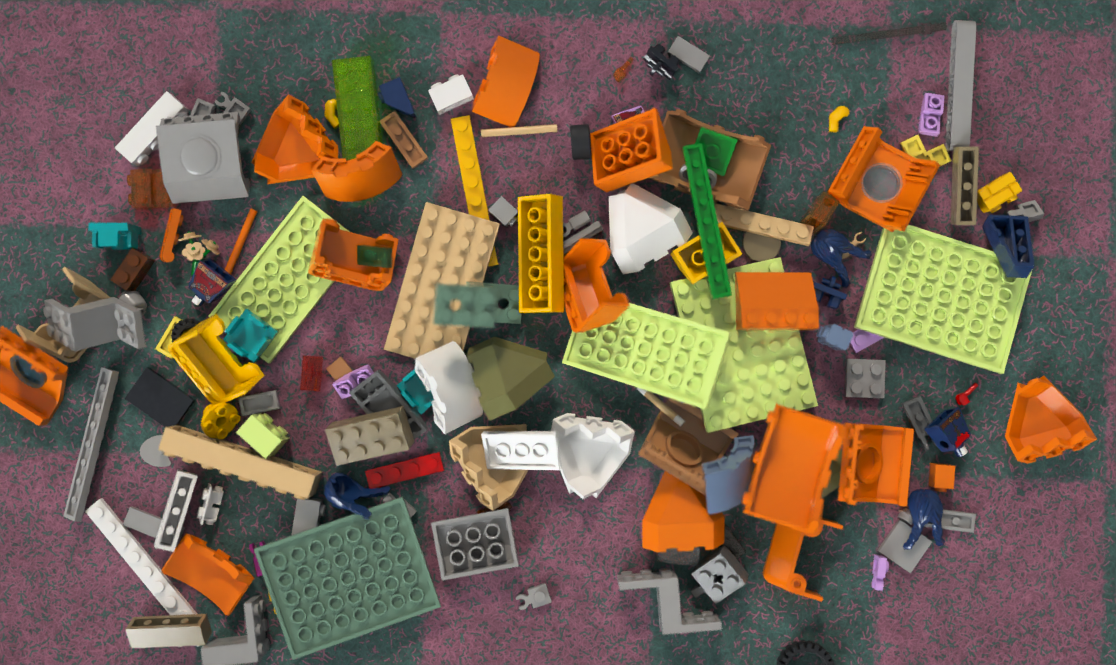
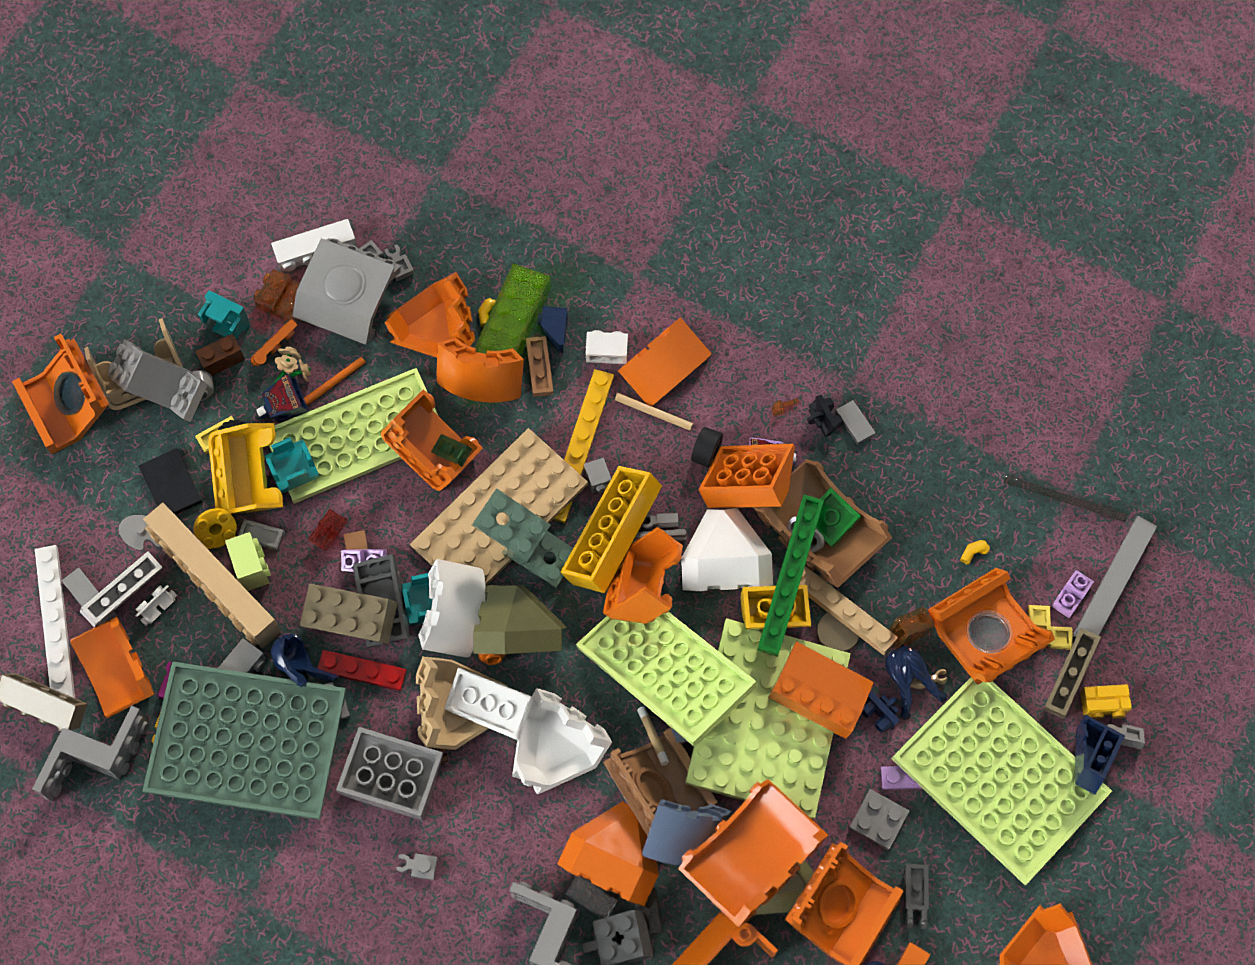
camera: 30 degrees right, 20 degrees down
(91, 444) = (80, 491): light grey plate -> none
(834, 337) = (865, 755): sand blue brick -> none
(949, 431) = (941, 917): dark blue torso -> none
(962, 398) = (972, 893): red hand -> none

